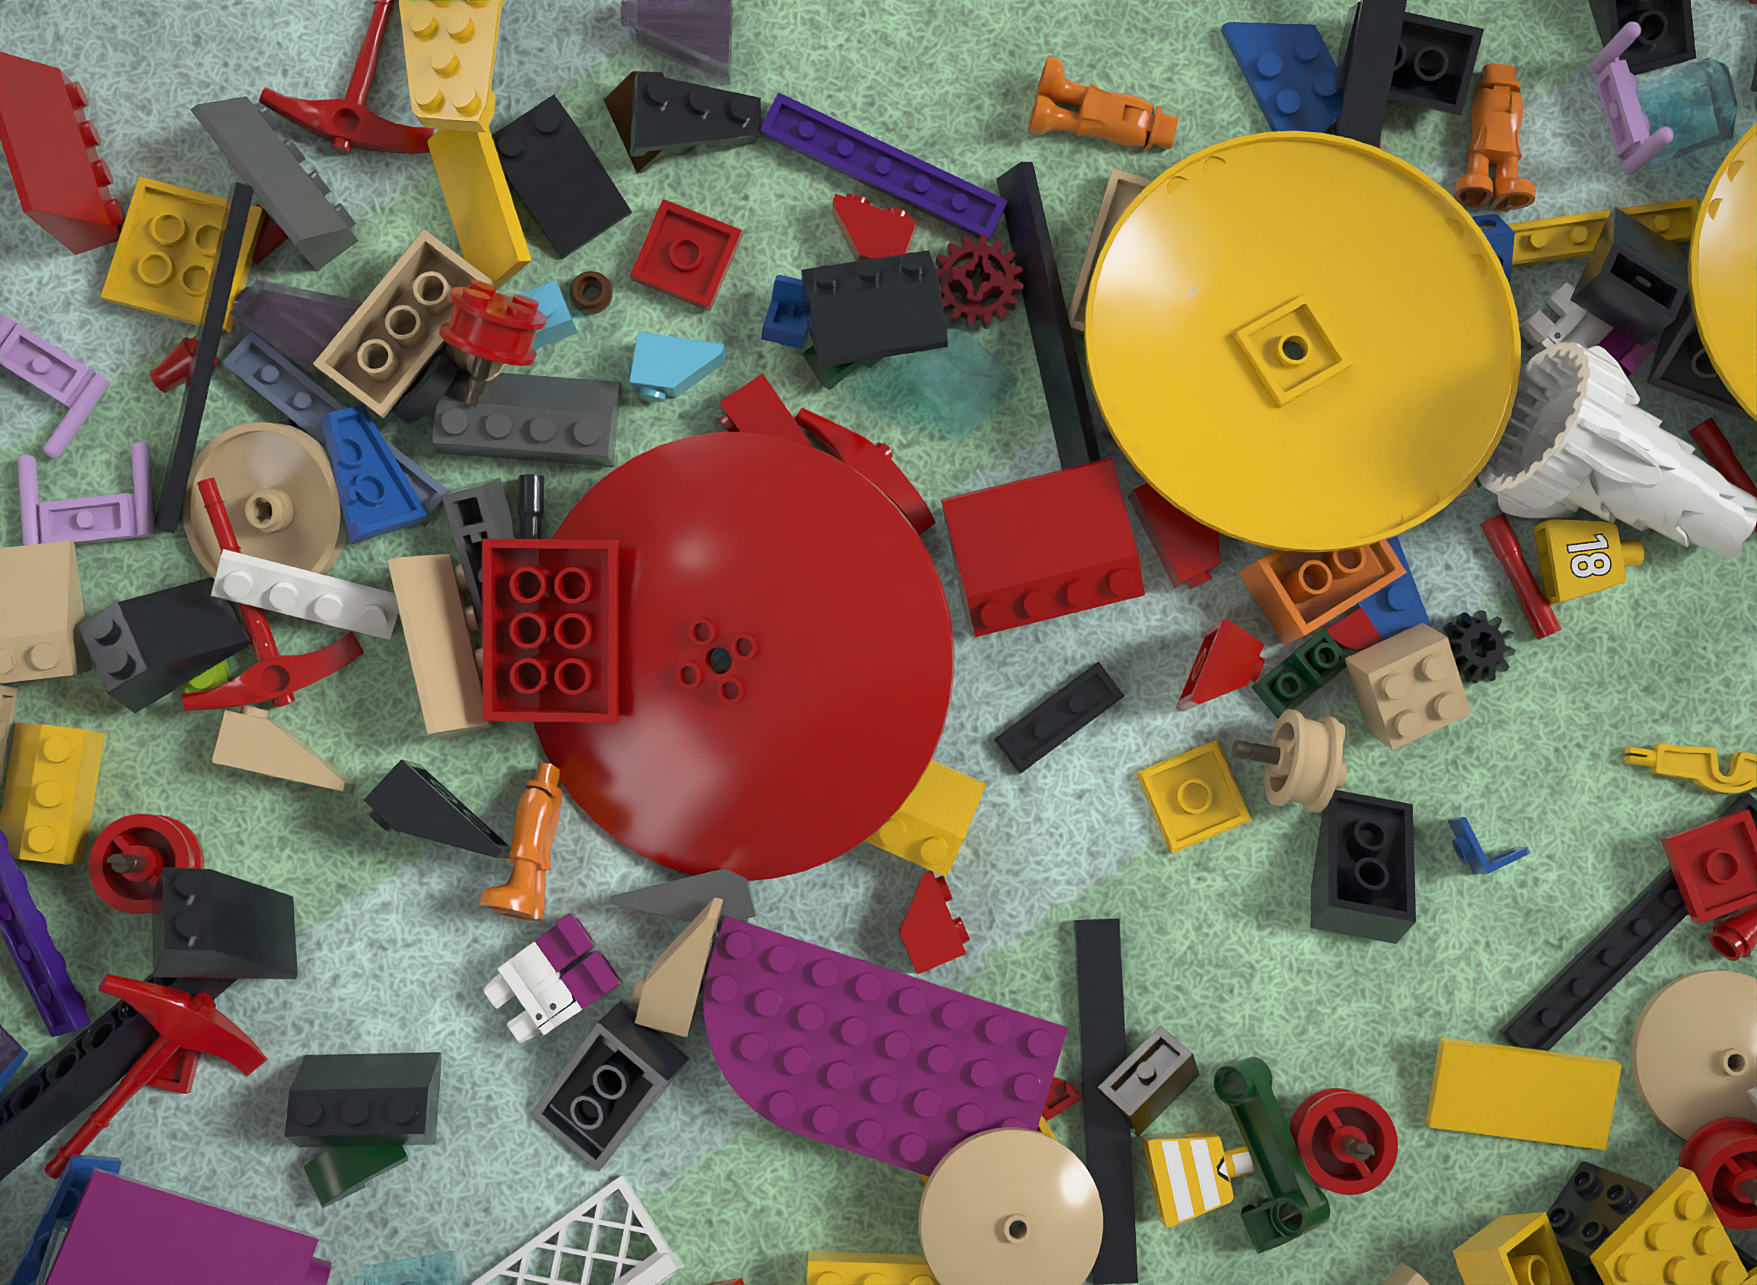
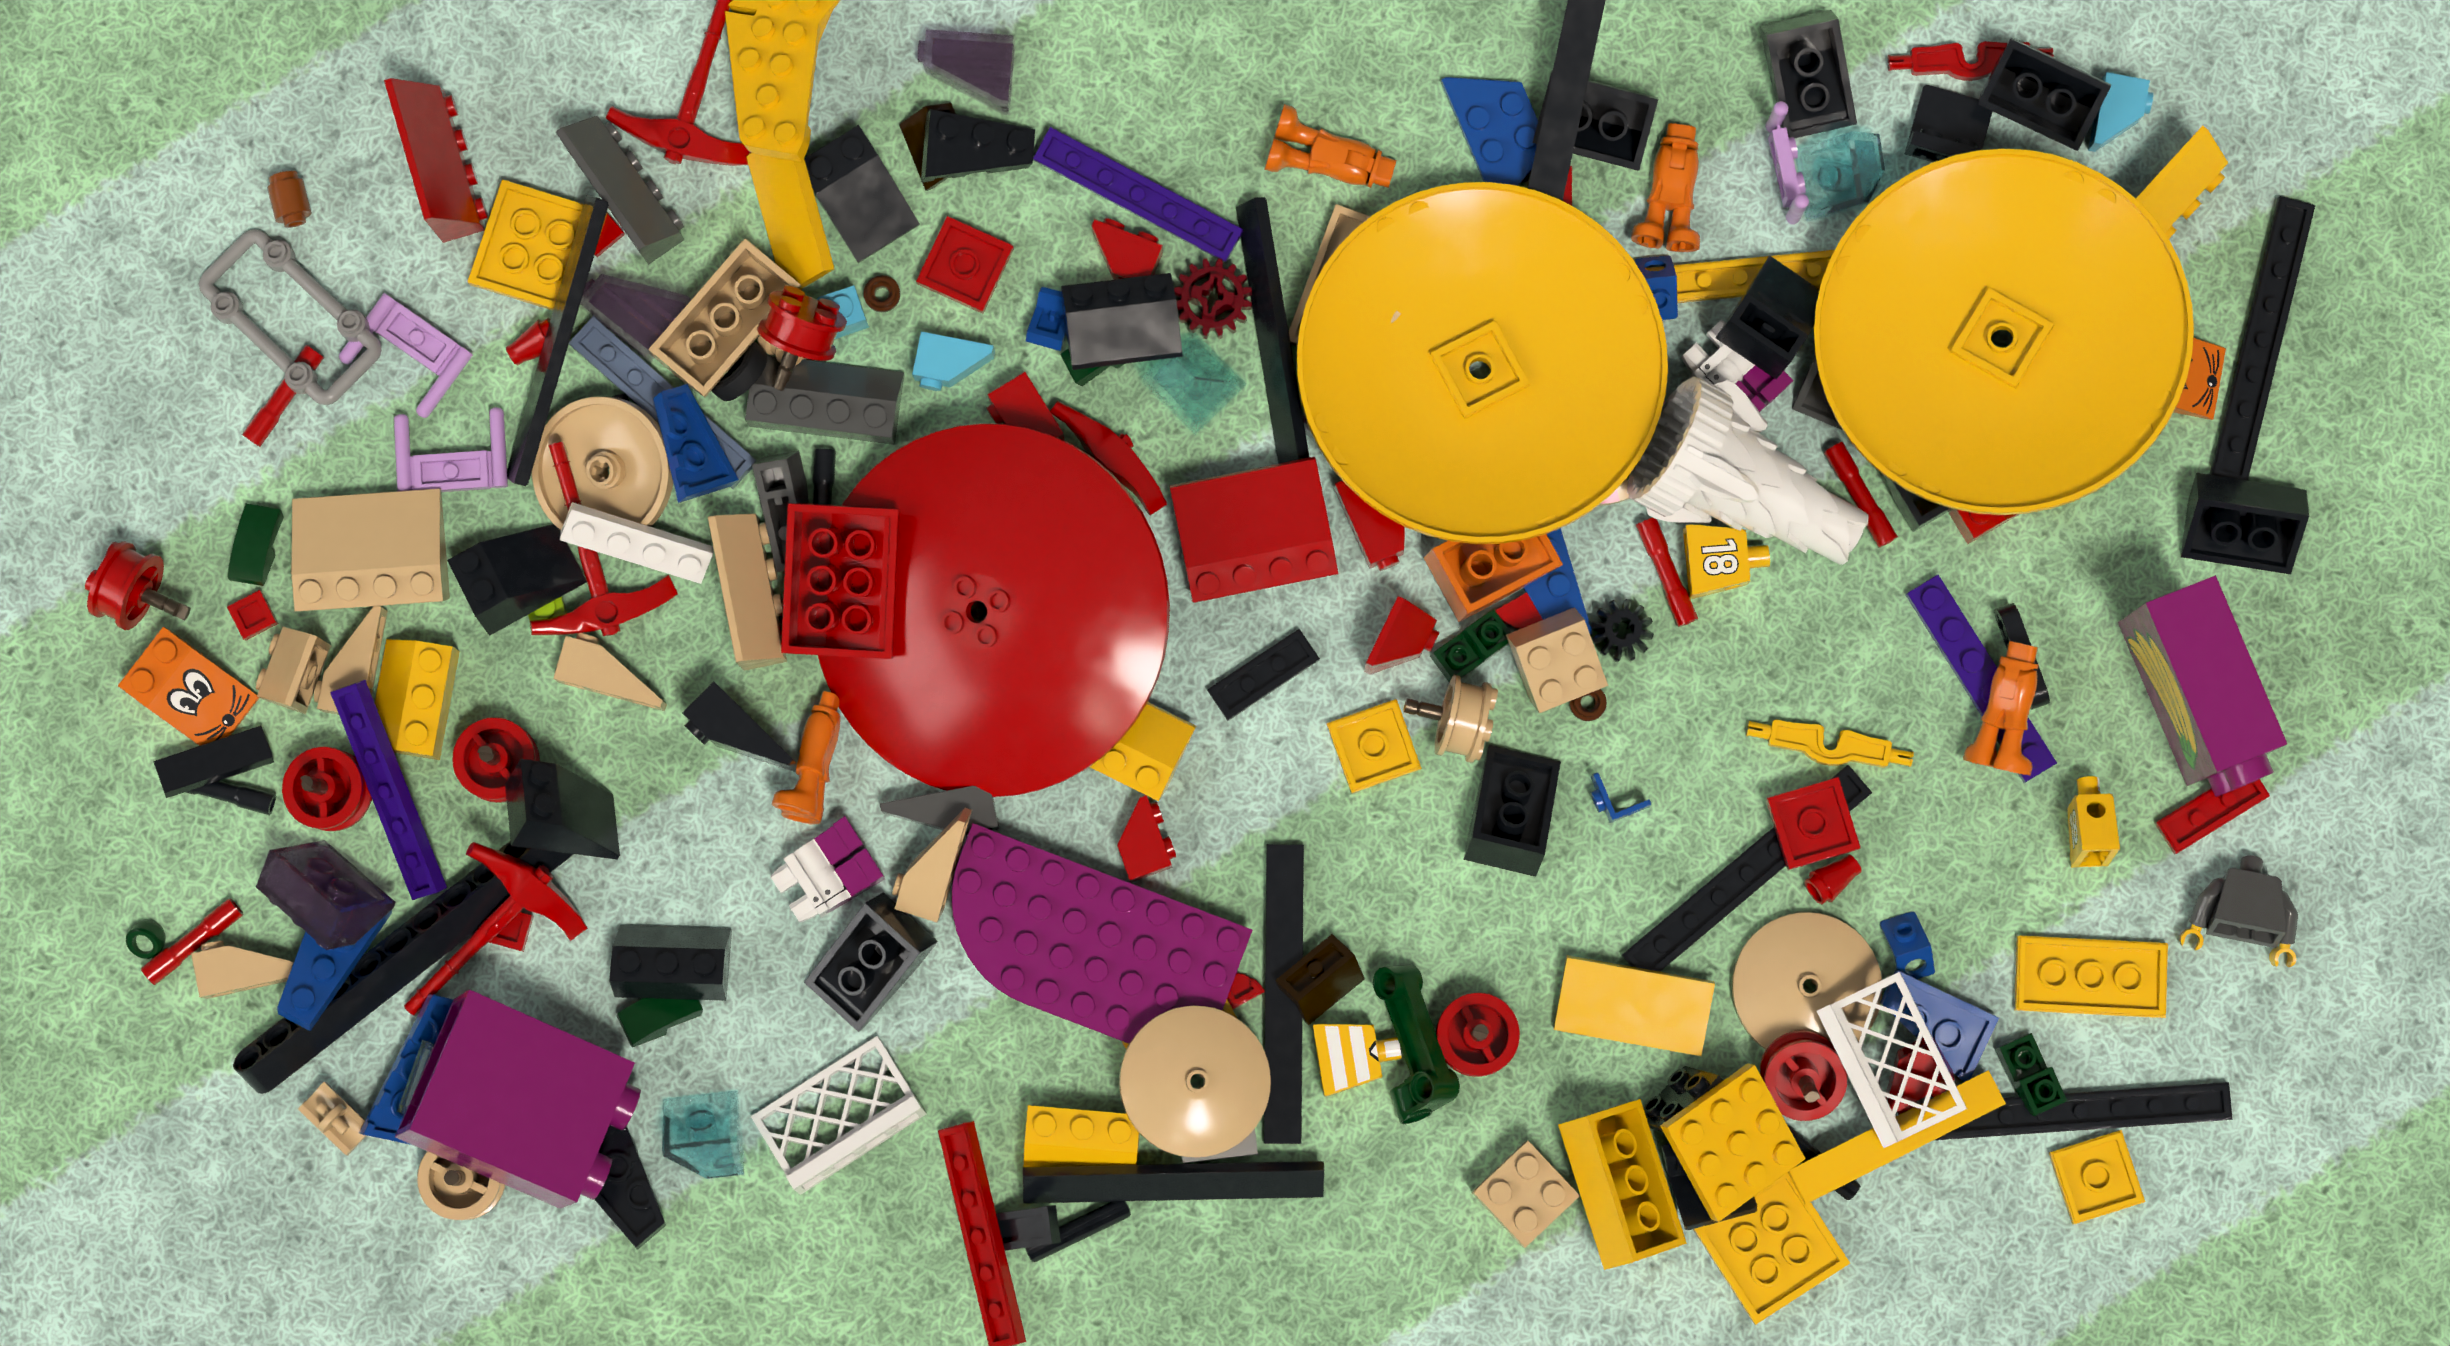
camera: 15 degrees right, 0 degrees up
(1451, 742) = (1592, 714): none -> reddish brown plate

